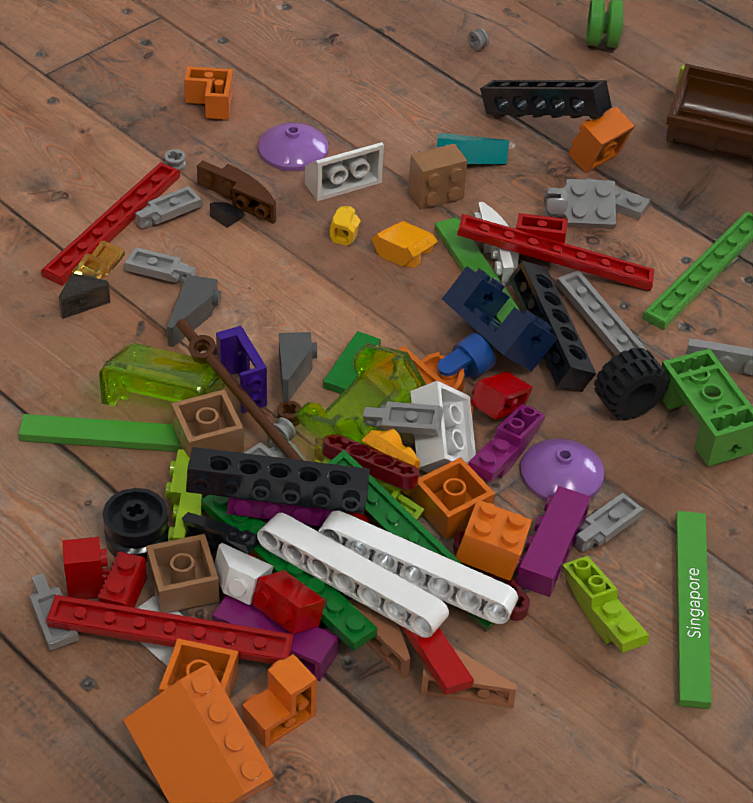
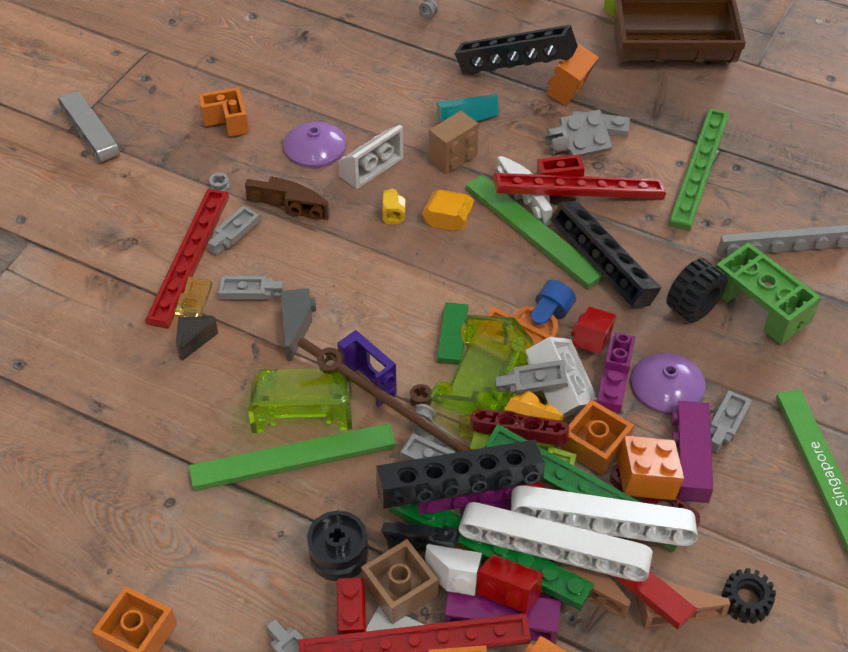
camera: 15 degrees left, 5 degrees up
(65, 74) = (89, 126): none -> light grey beam
(84, 566) = (313, 604): red brick -> none
(180, 500) = (367, 505): lime slope -> none
(208, 423) = (363, 433): medium nougat brick -> none
(225, 213) = (284, 222): black slope -> none
(295, 360) = (405, 344): dark grey slope -> none
(519, 337) = (538, 247): dark blue plate -> none
(550, 679) = (755, 583): none -> black tyre
(598, 313) = (641, 235): light grey plate -> none
(601, 605) = (757, 500): lime slope -> none

